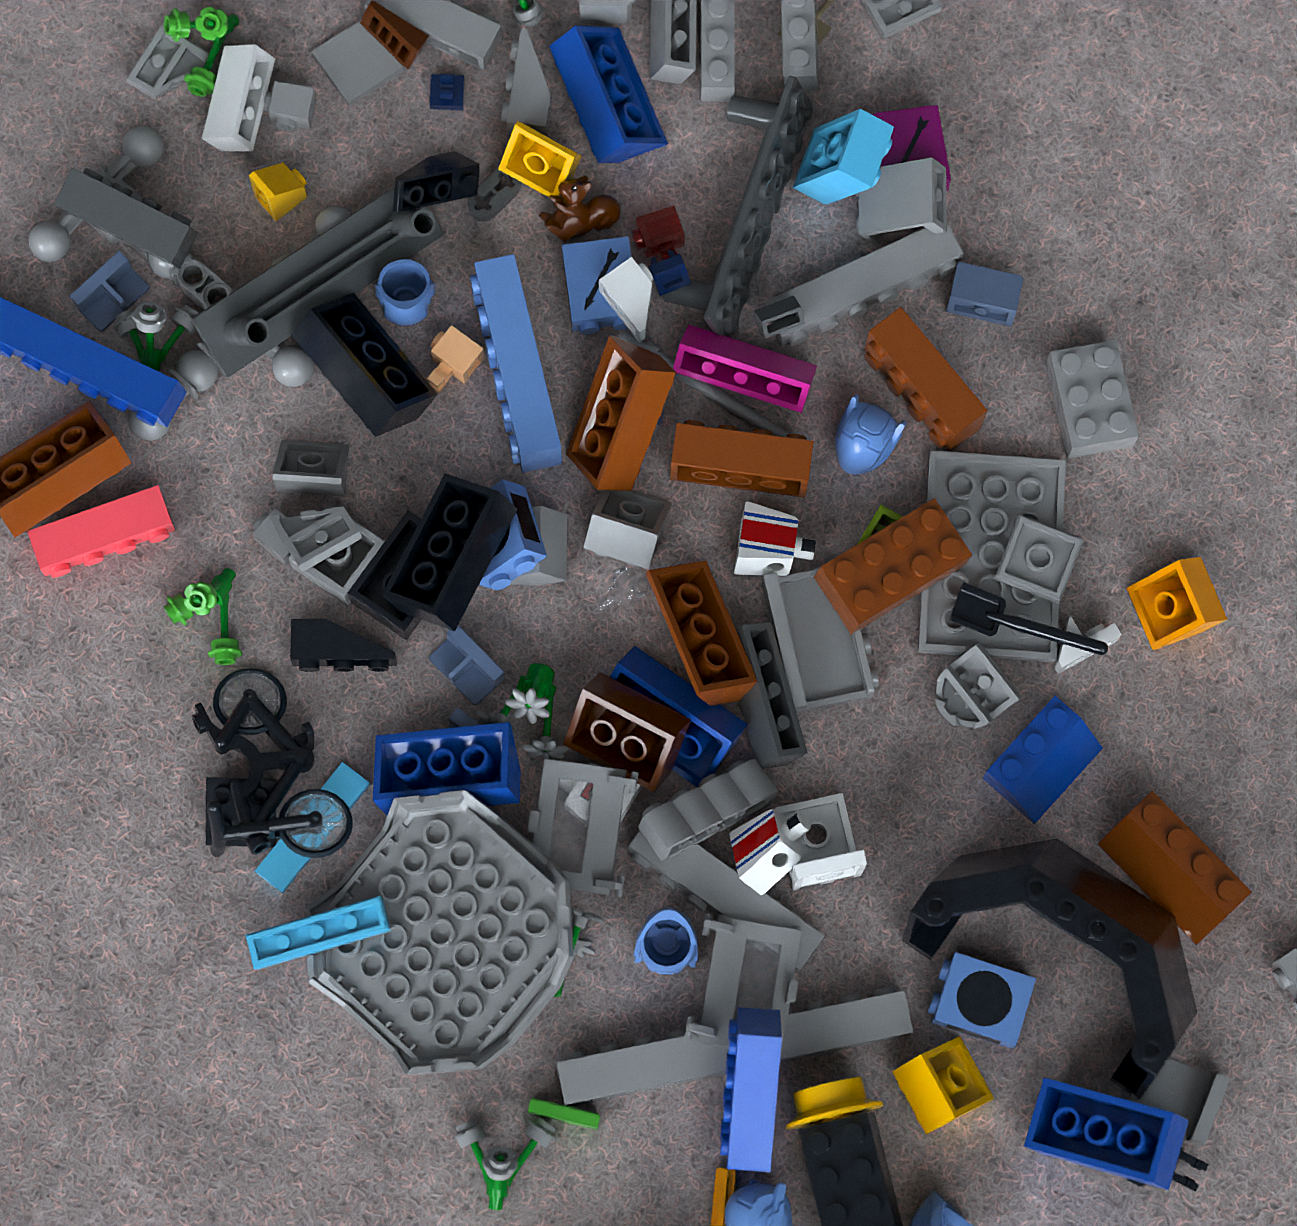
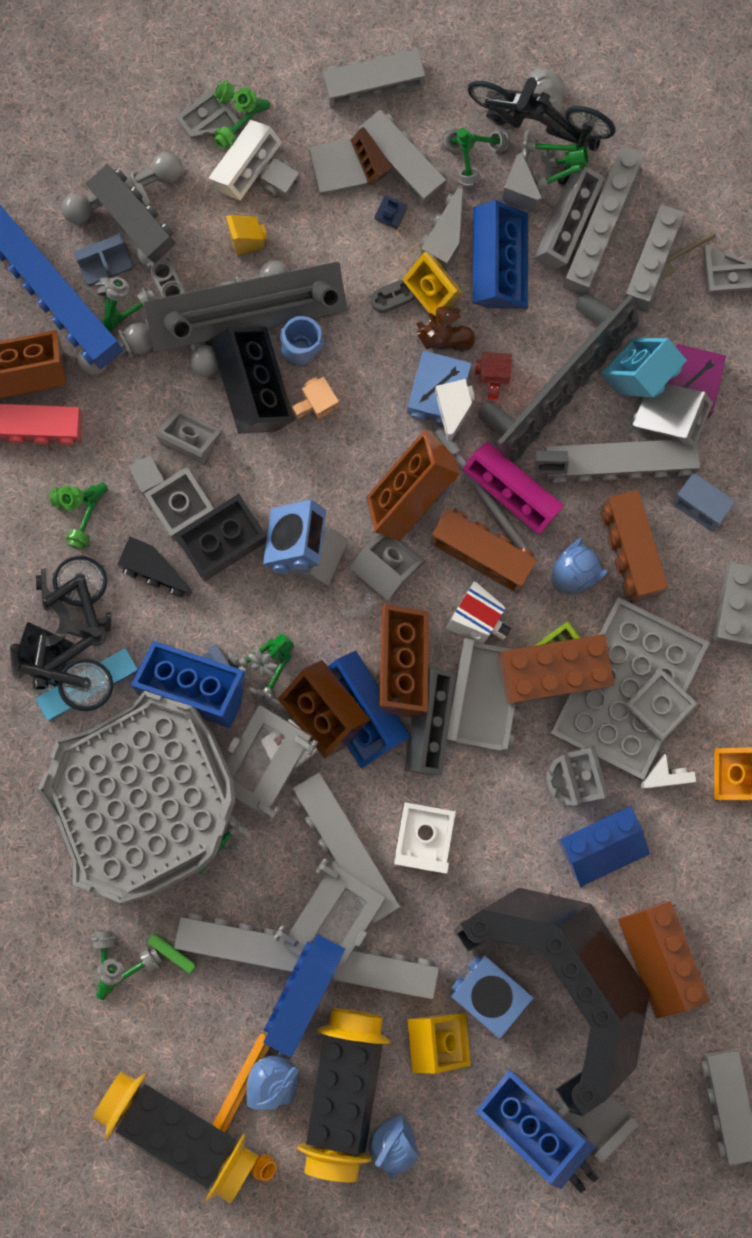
camera: 25 degrees right, 5 degrees up
(316, 534) = (167, 485): light grey wing -> none
(318, 932) = (57, 760): medium azure tile -> none
(436, 181) = (353, 271): black slope -> none
(449, 552) = (251, 536): black brick -> none
(467, 666) = (236, 616): sand blue panel -> none
(518, 365) = (357, 420): medium blue brick -> none
(669, 273) = (487, 400): dark blue tile -> none
(670, 931) = (297, 859): medium blue helmet -> none
(707, 809) = (355, 786): light grey brick -> none
(767, 848) = (385, 830): white torso -> none
(985, 611) = (607, 726): black piece -> none

